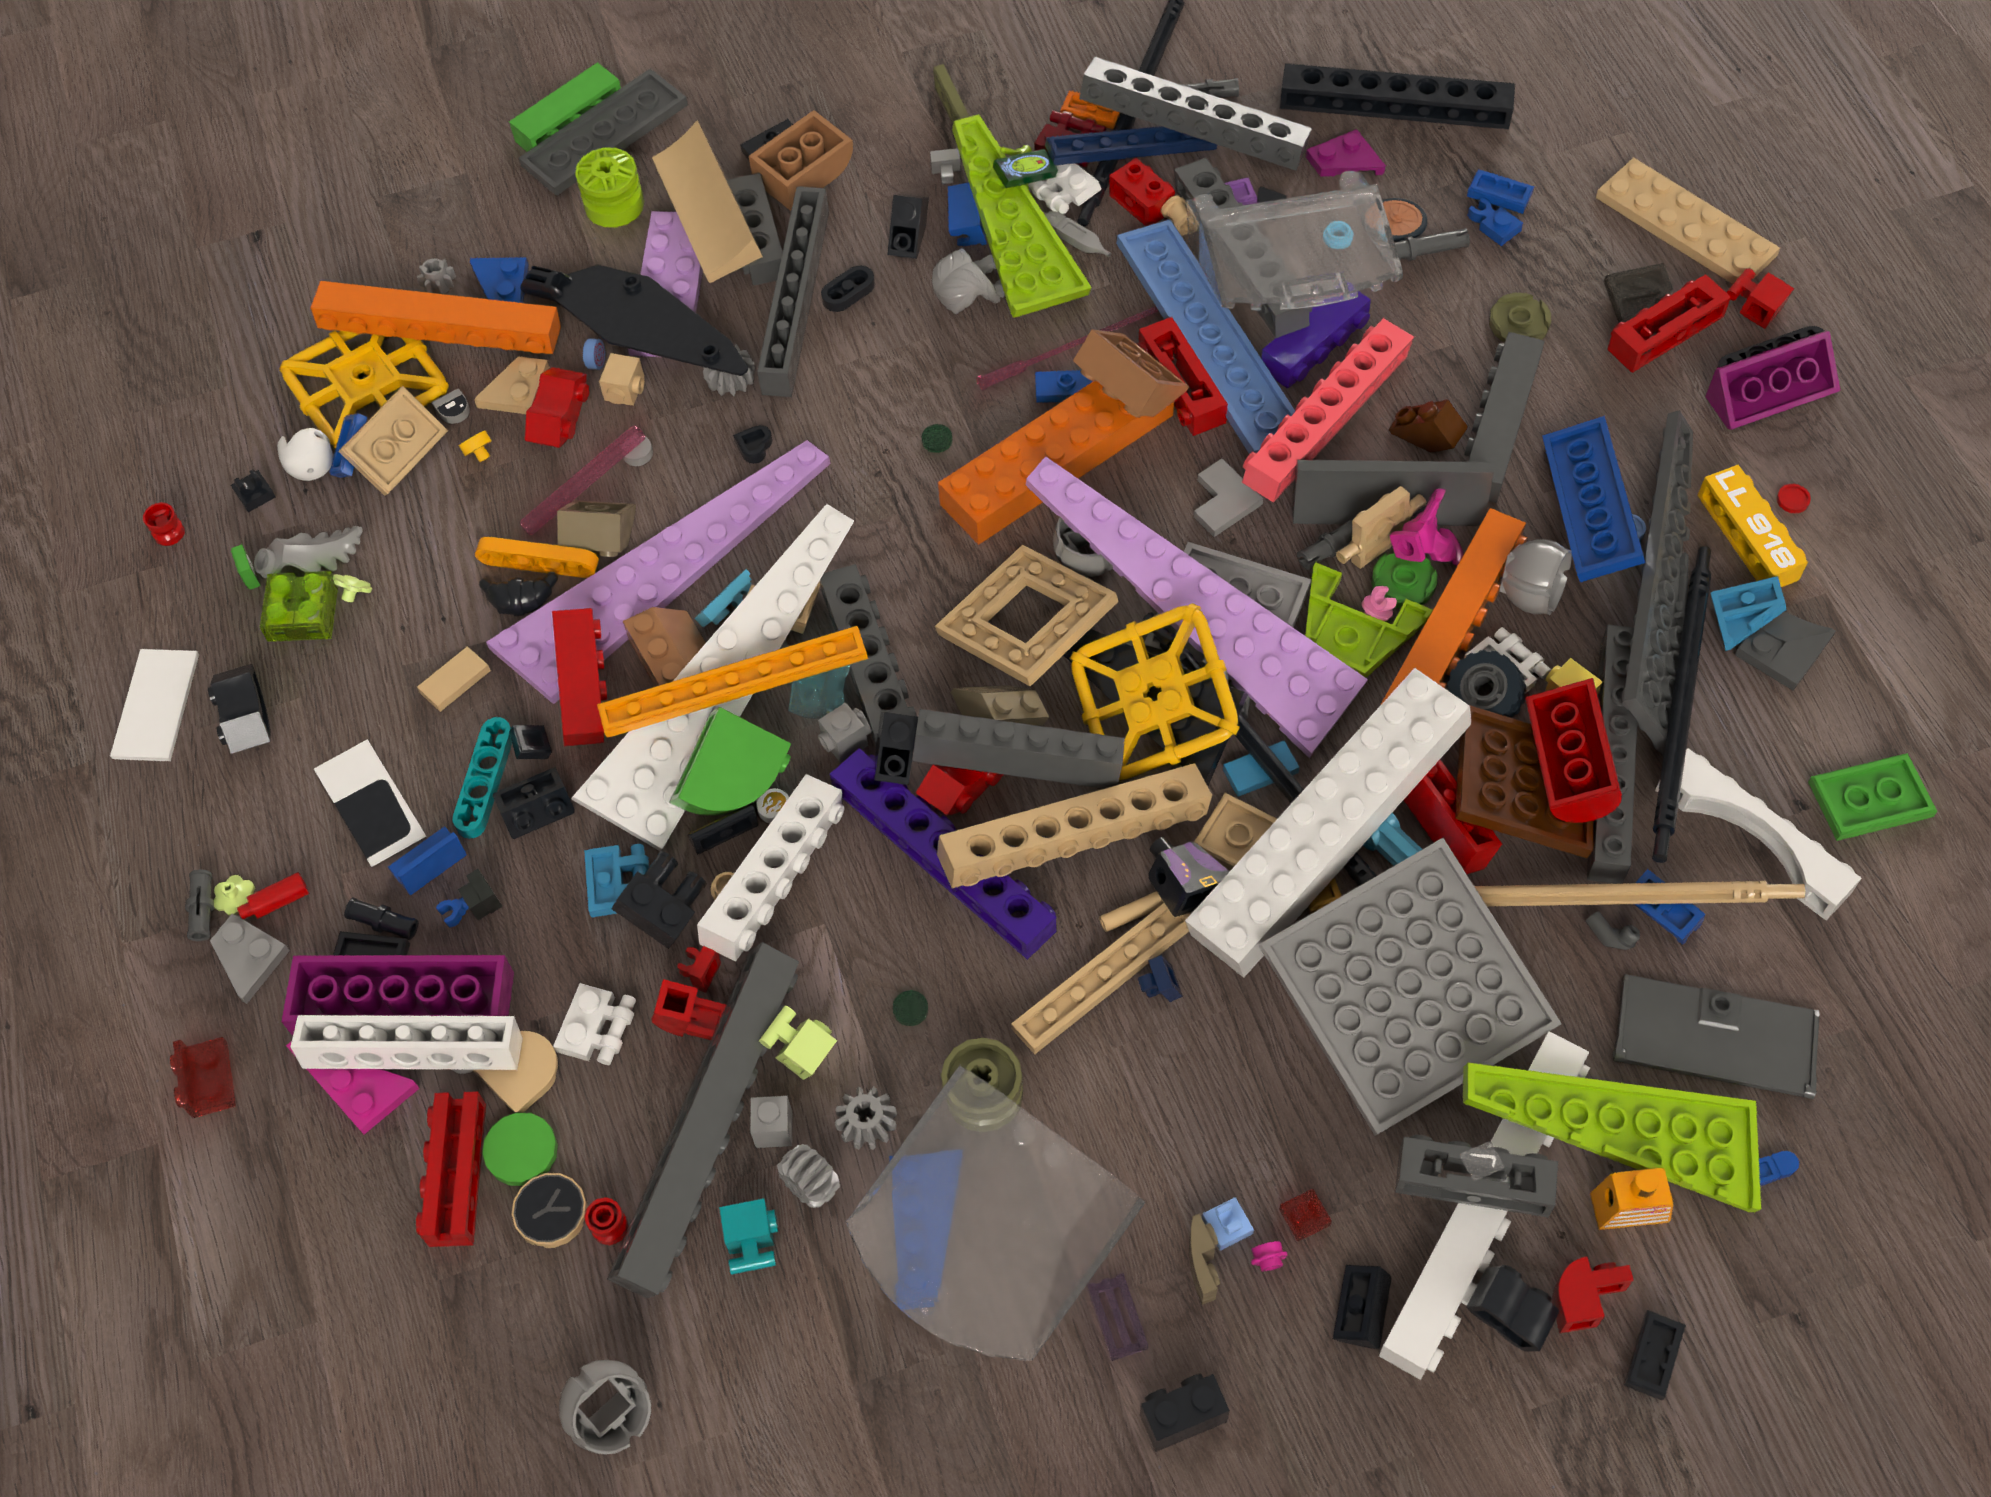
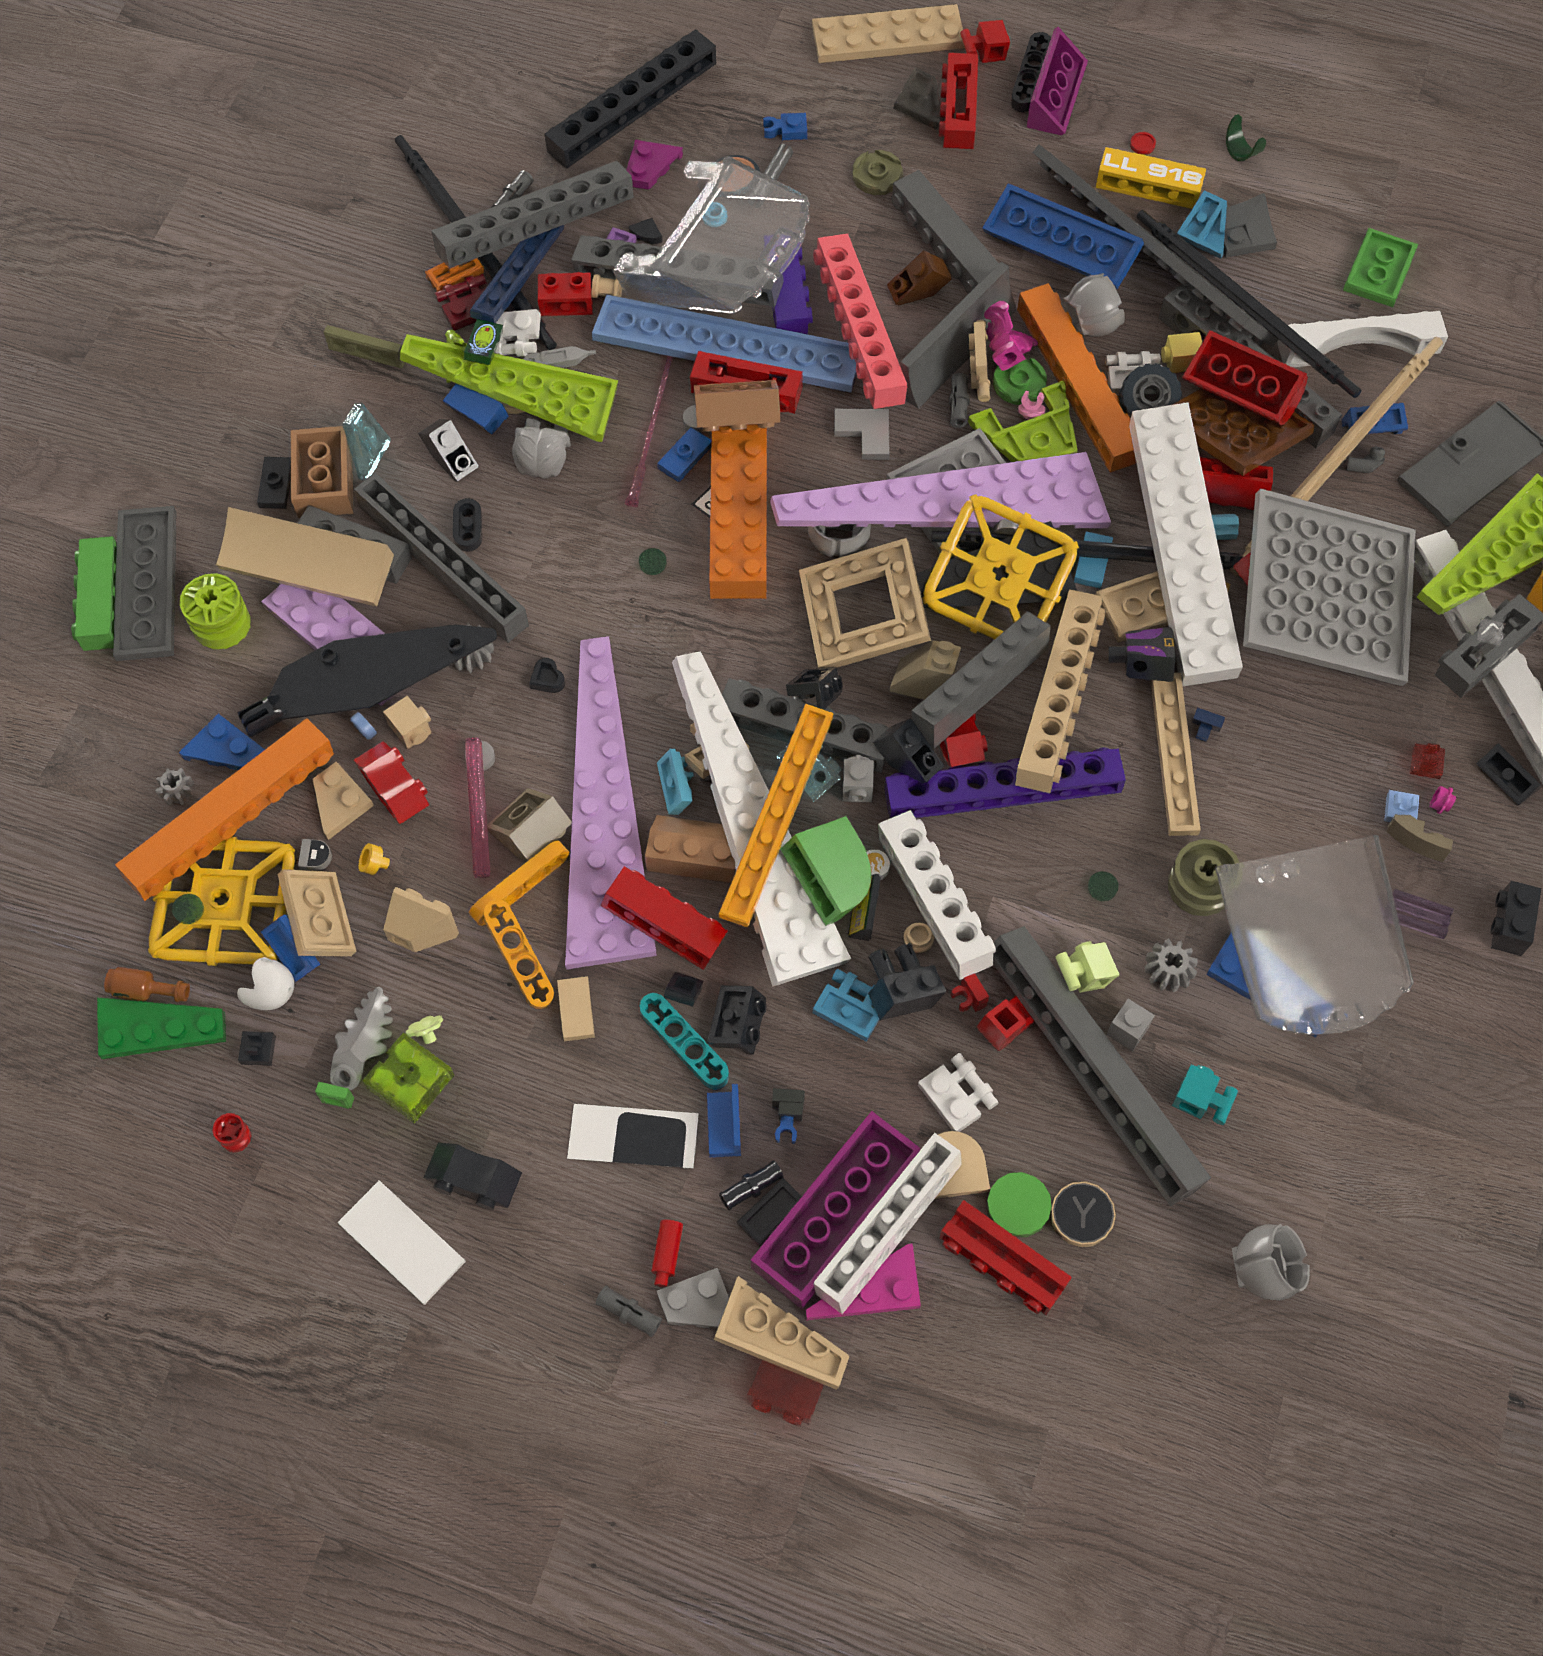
camera: 55 degrees left, 5 degrees up
(221, 414) = (149, 1027): none -> green wing
(232, 894) = (641, 1288): yellowish green plant -> none
(247, 380) = (140, 984): none -> dark orange piece
(247, 1029) = (769, 1333): none -> tan wing
(333, 359) = (188, 908): none -> clear green piece
(438, 510) = (418, 922): none -> tan slope
(460, 598) = (521, 952): none -> light orange beam
(517, 594) = (540, 917): black piece -> none
(610, 1228) = (1120, 1185): red wheel -> none
(808, 1176) = (1192, 1026): light grey gear -> none
(858, 164) = (365, 439): none -> clear light blue wing
(907, 636) = (817, 682): none -> black bracket
(946, 163) = (416, 389): light grey tile -> none
(1130, 911) = (1139, 705): tan piece -> none
(1500, 191) = (767, 104): blue plate -> none
(1884, 573) = (1236, 143): none -> dark green helmet

